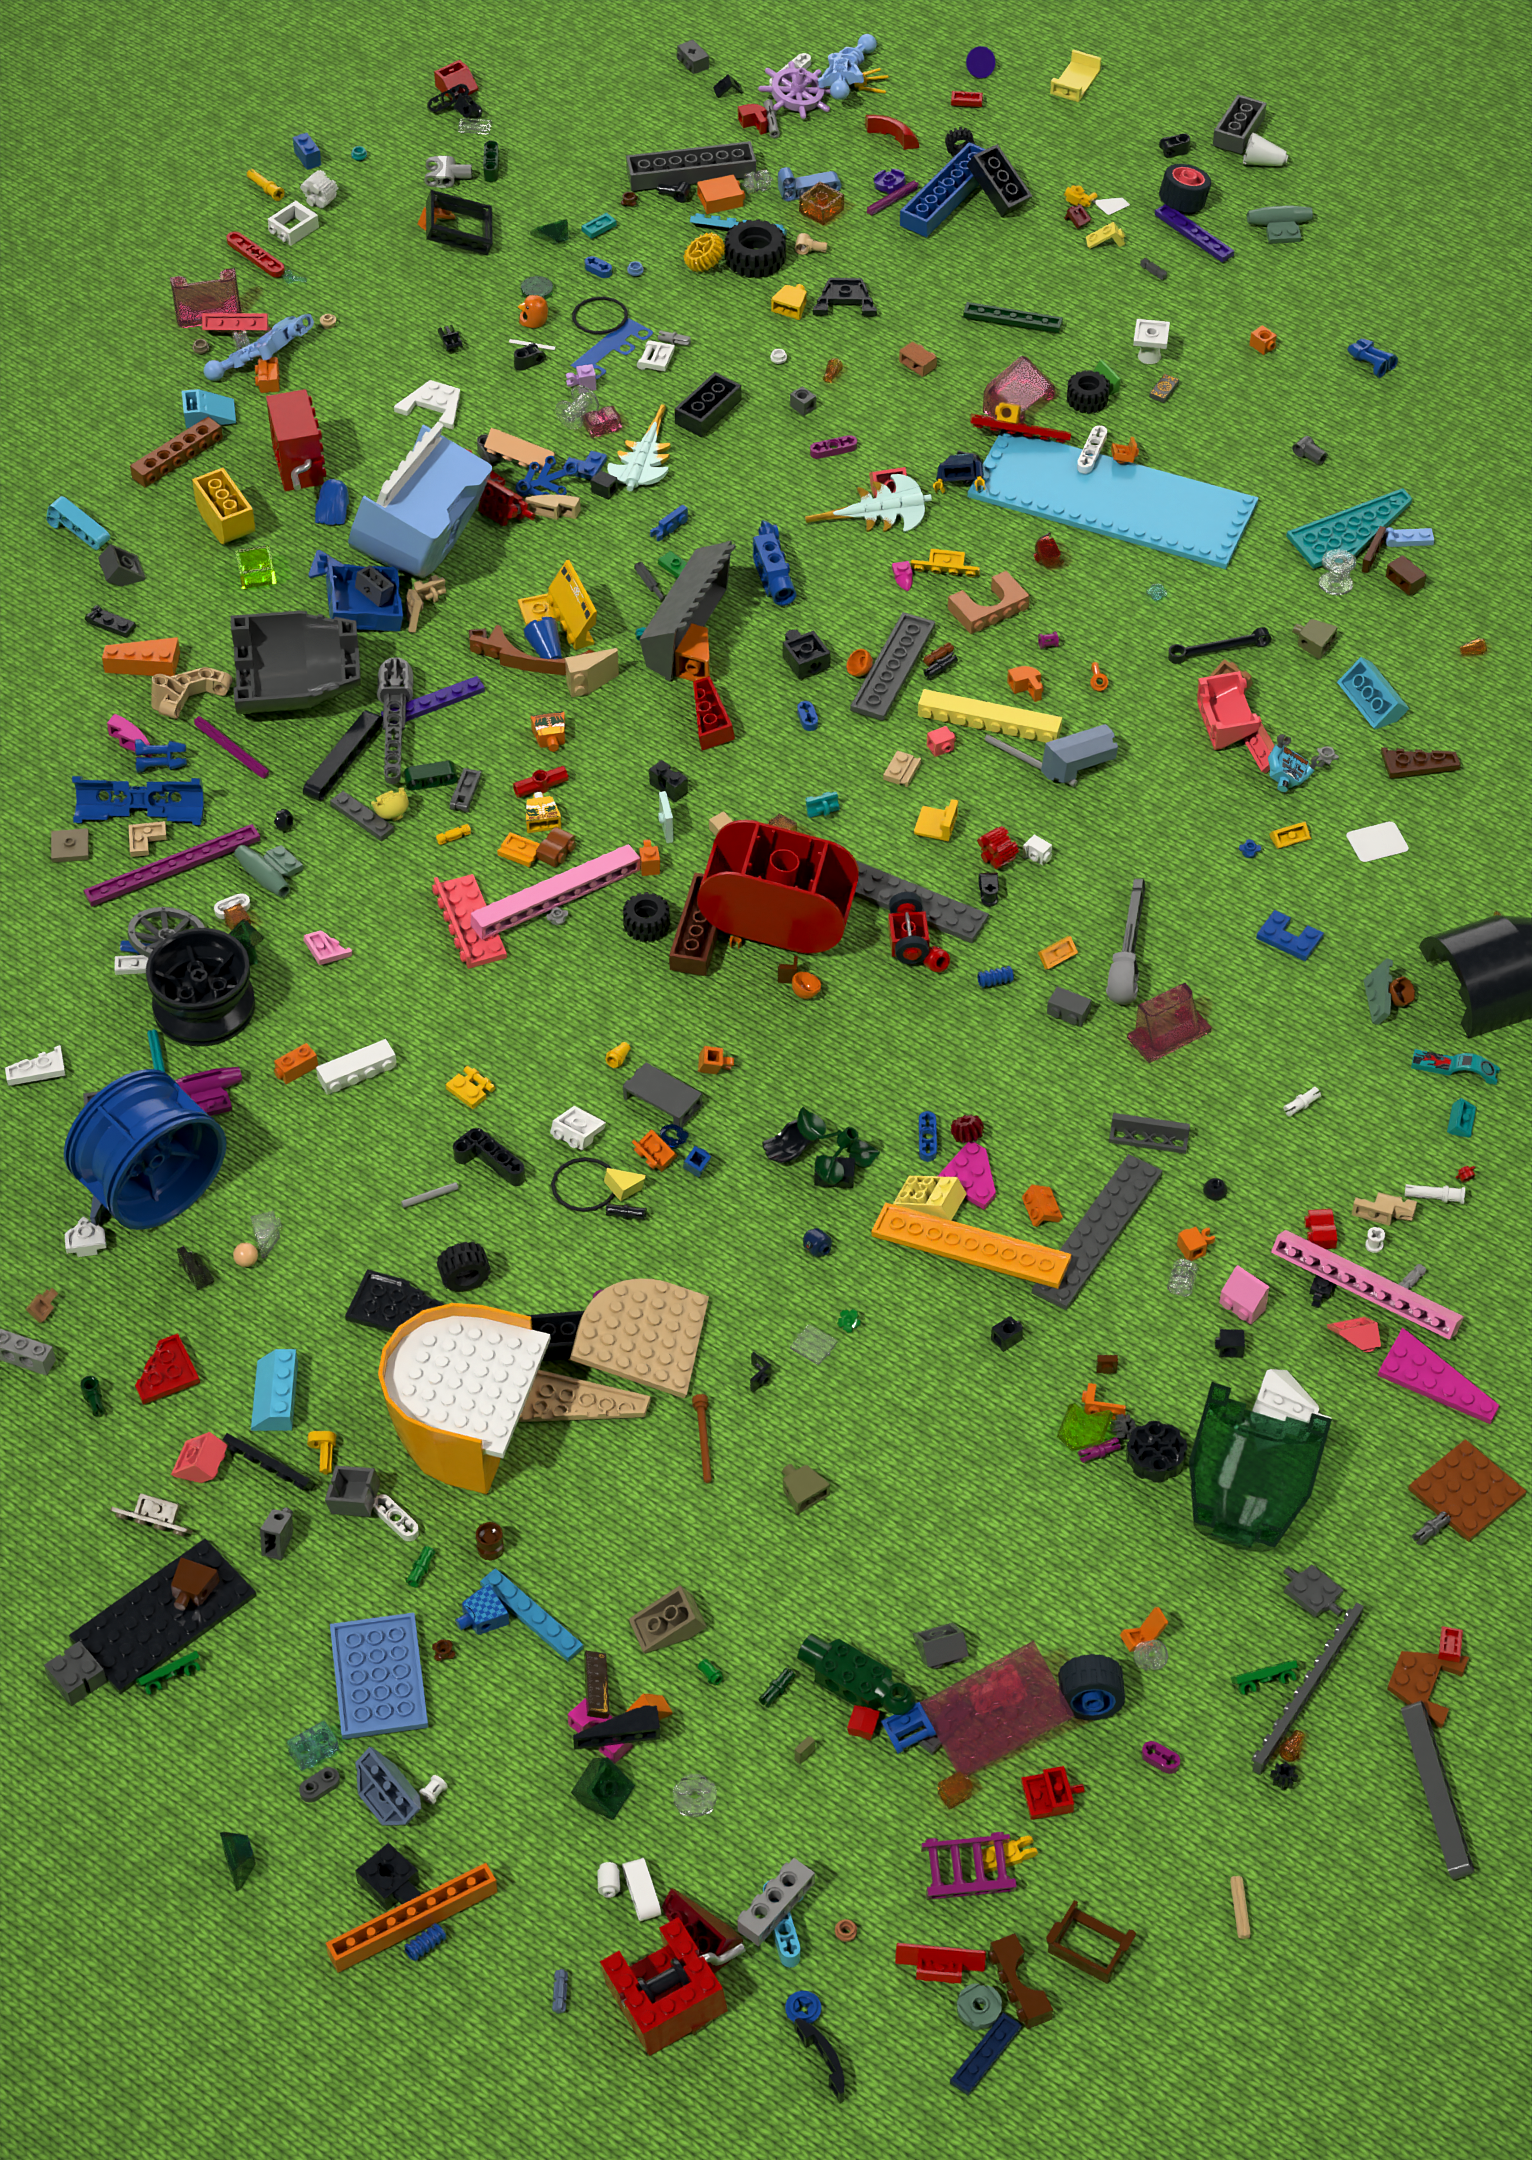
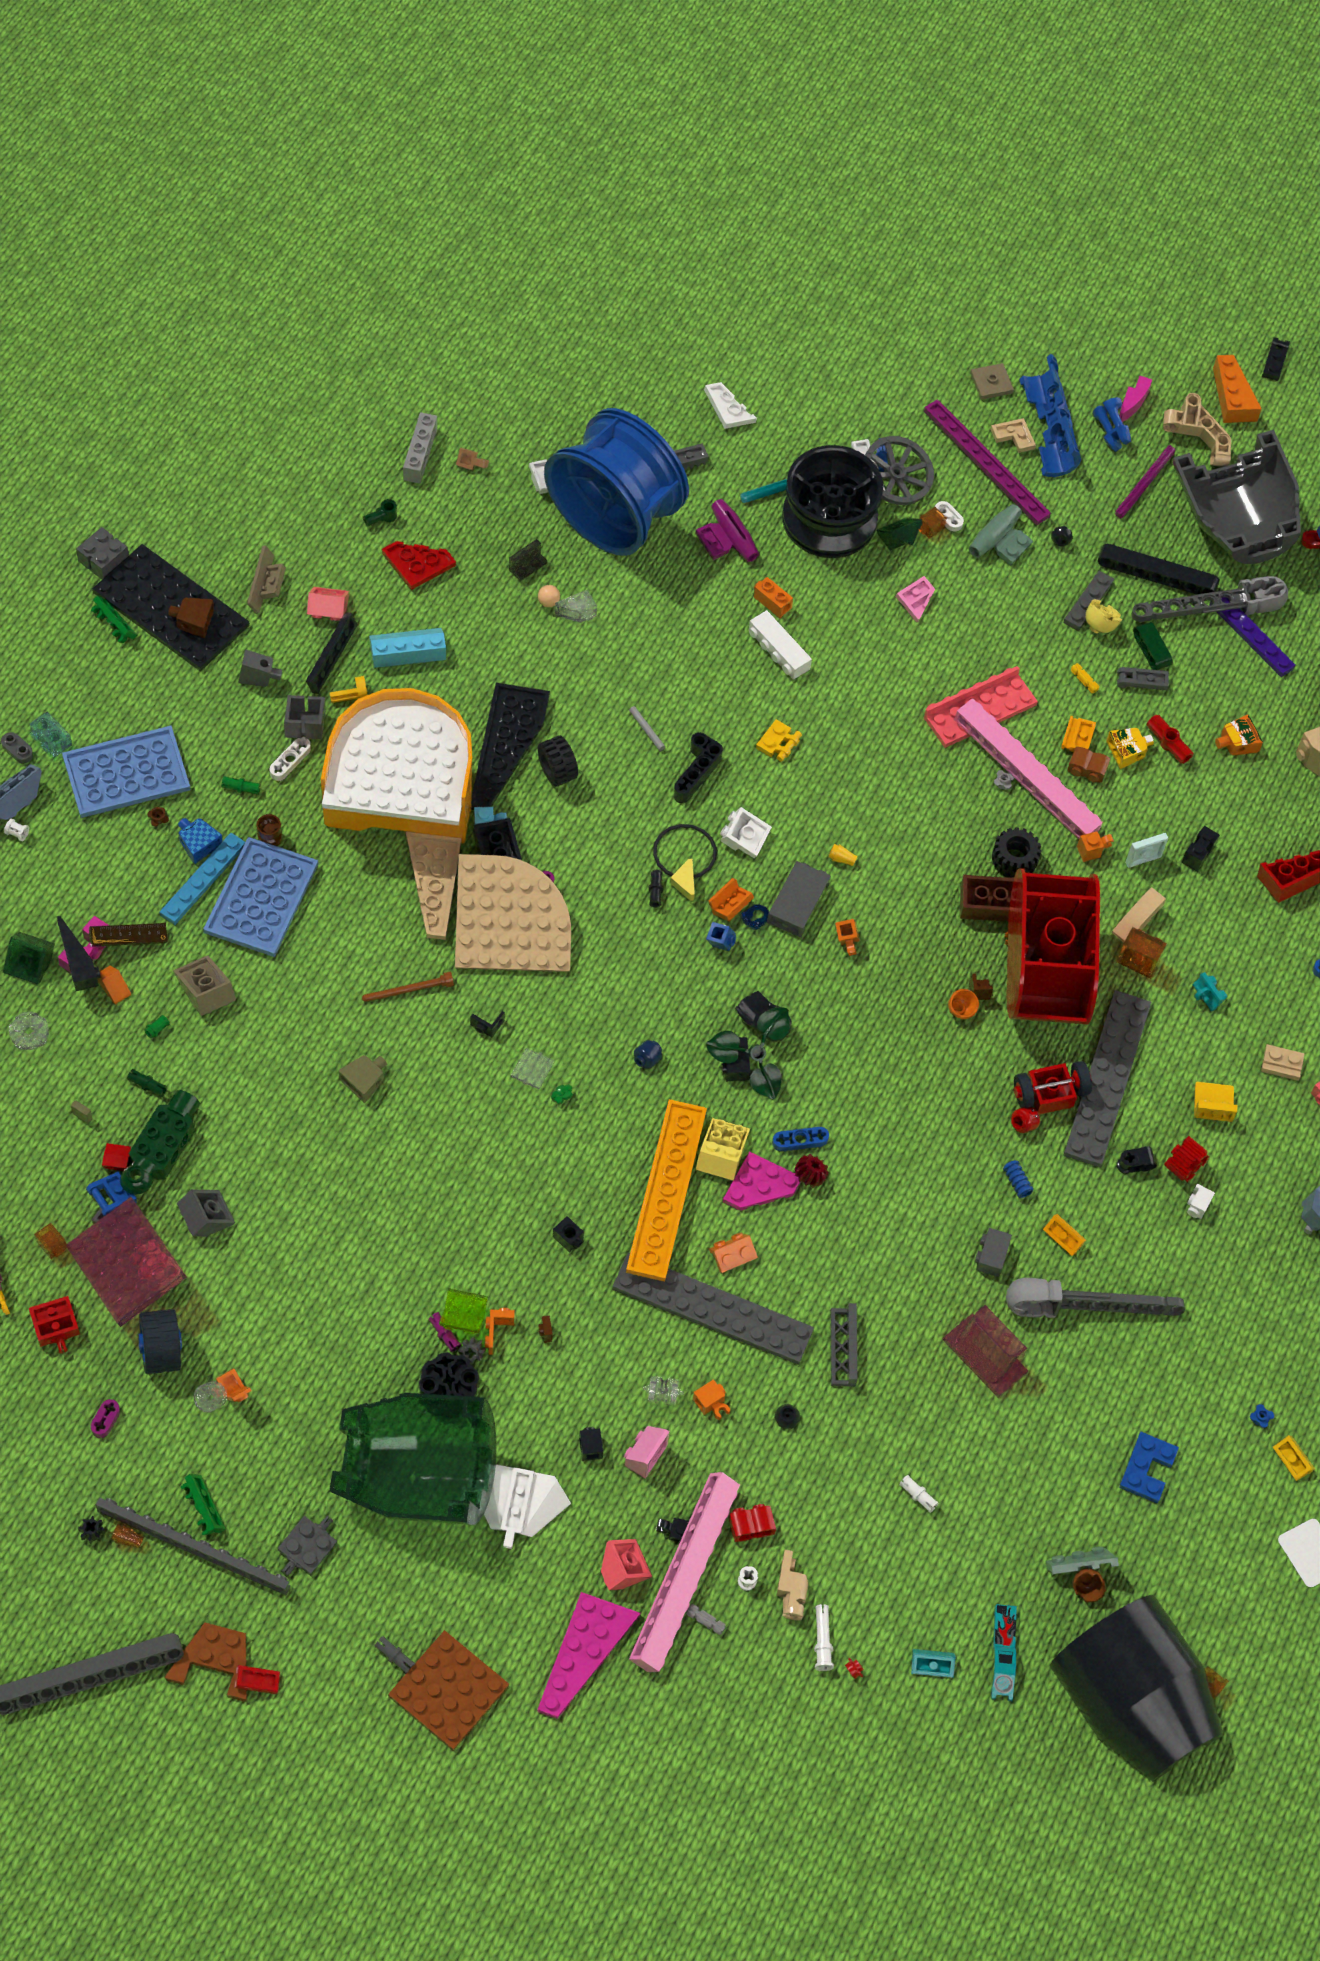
camera: 75 degrees right, 10 degrees up
(567, 1560) = (261, 896): none -> medium blue plate

